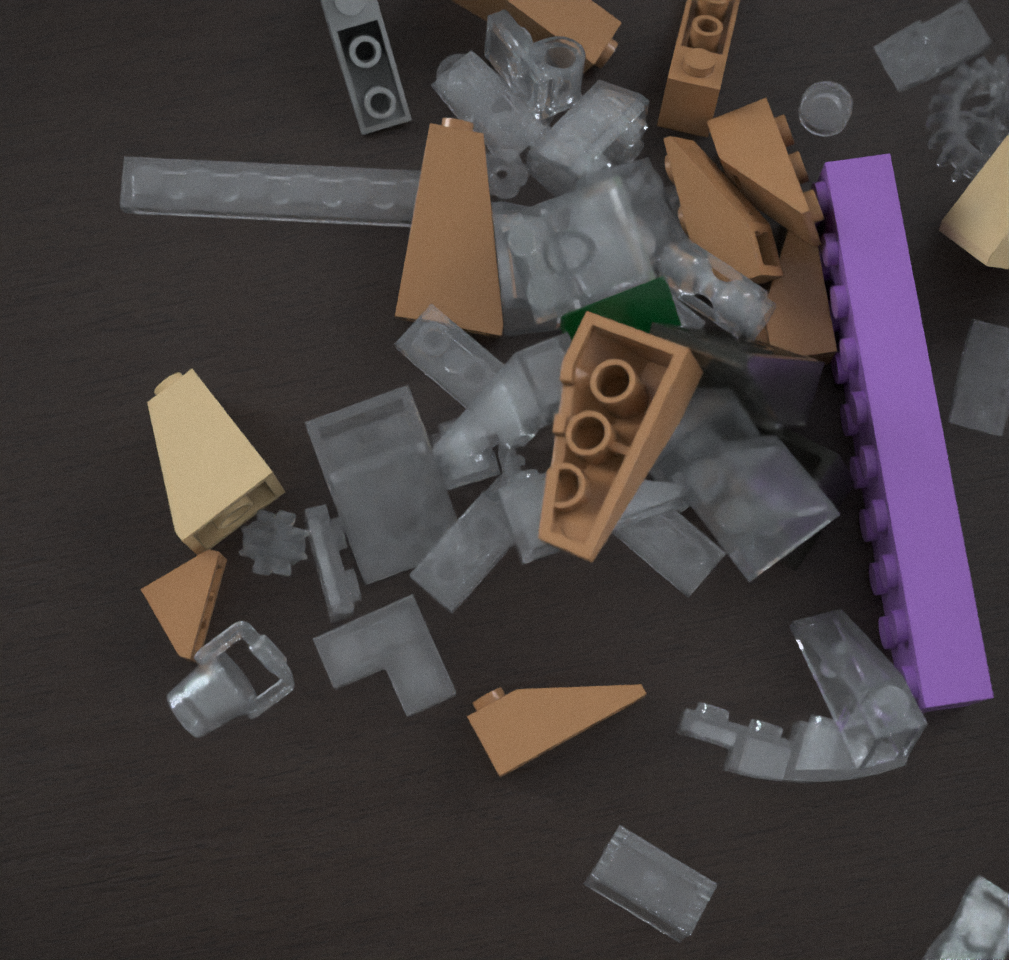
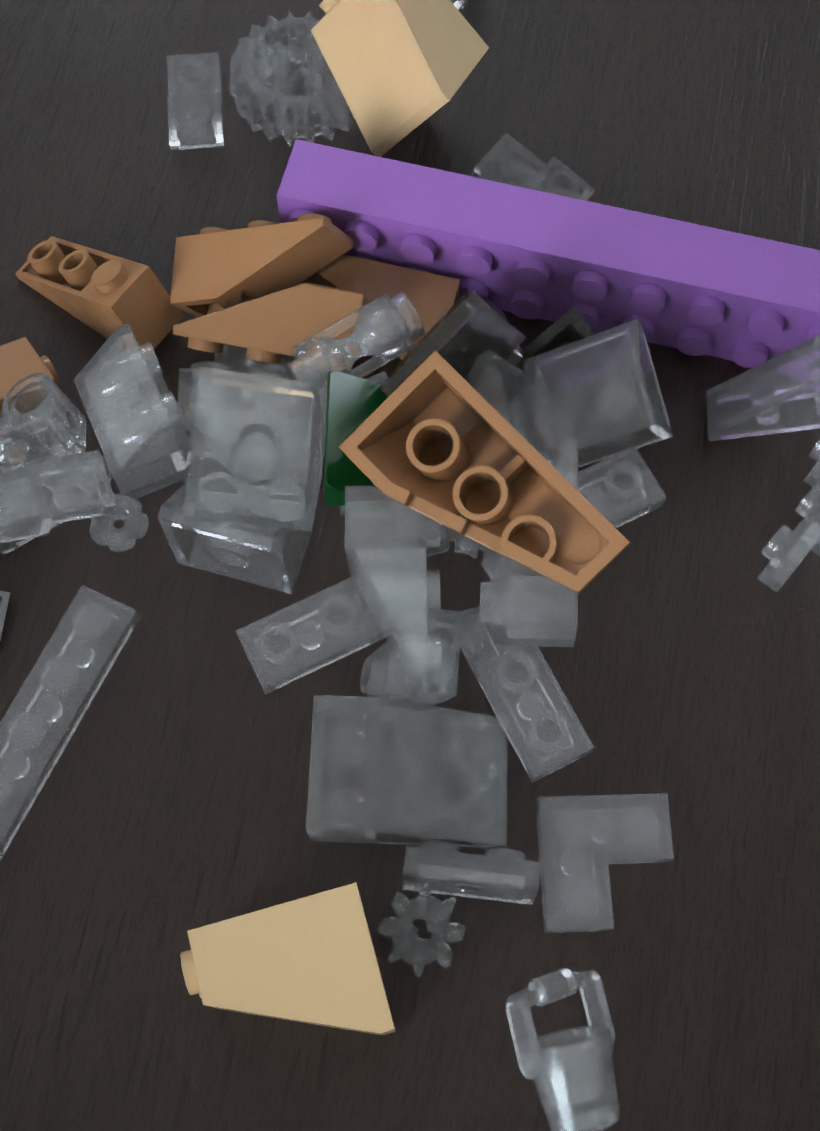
camera: 70 degrees left, 10 degrees down
(186, 601) = (451, 1069): medium nougat slope -> none
(452, 235) = (162, 587): medium nougat slope -> none
(536, 720) = (730, 724): medium nougat slope -> none
(825, 108) = (207, 206): clear tile -> none

